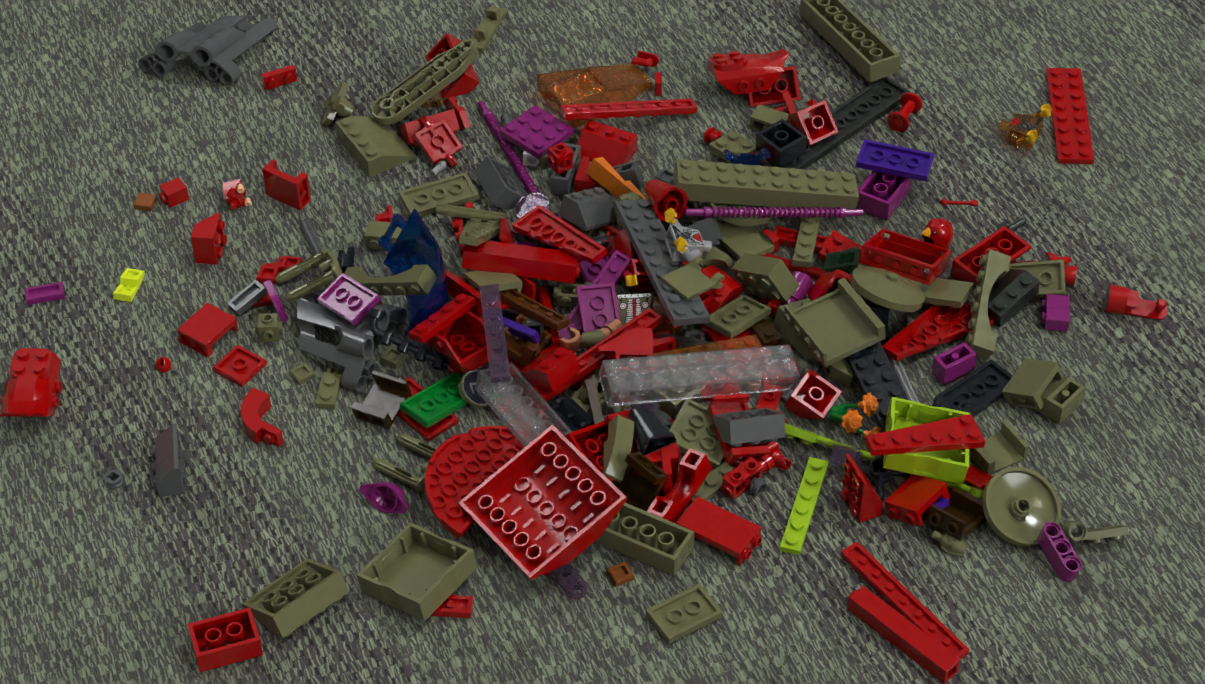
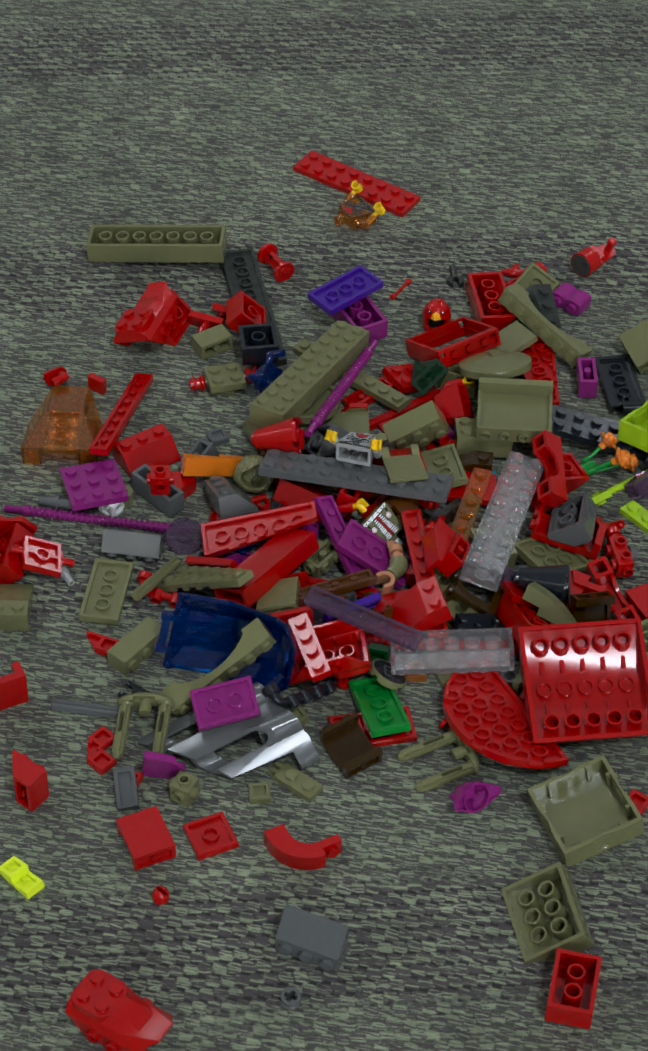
camera: 60 degrees left, 0 degrees up
(805, 364) = (549, 451): none -> red arch

